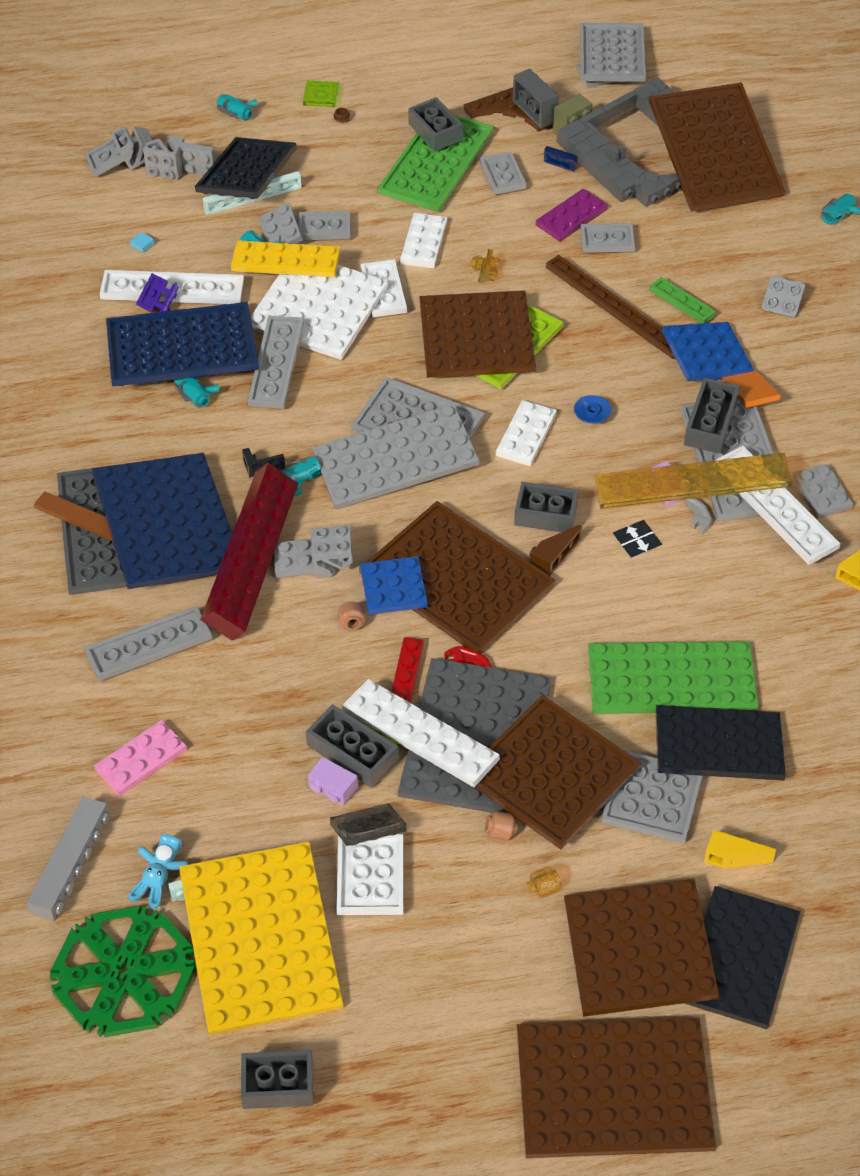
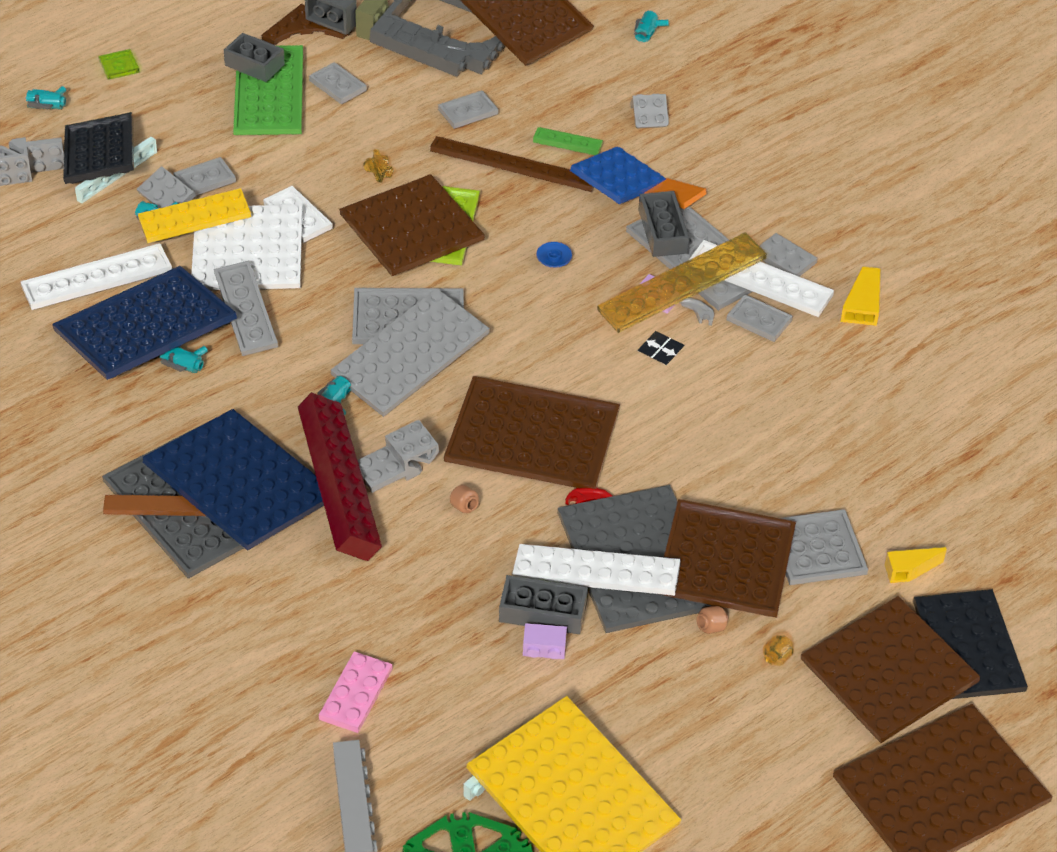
camera: 30 degrees left, 5 degrees down
(142, 242) = (37, 246): medium azure tile -> none
(147, 643) = (294, 592): light grey plate -> none
(152, 293) = (86, 284): dark purple plate -> none
(156, 873) = (443, 782): medium azure animal -> none
(252, 464) = (287, 406): black bracket -> none
(341, 115) = (152, 77): reddish brown plate -> none
(368, 824) = (602, 663): clear smoke plate -> none
(370, 877) = (629, 704): white plate -> none
(393, 585) = (485, 459): blue plate -> none
(407, 668) = (540, 522): red plate -> none
(423, 240) = (304, 162): white plate -> none
(526, 433) = (508, 294): white plate -> none
(545, 507) = (572, 347): dark grey brick -> none
(554, 549) = (600, 380): reddish brown slope -> none
(560, 158) = (381, 55): clear blue plate -> none
(570, 214) = (422, 100): magenta plate -> none
(685, 674) = (765, 448): bright green plate -> none
(719, 742) = (841, 483): black plate -> none
(752, 544) = (759, 318): none -> light grey plate

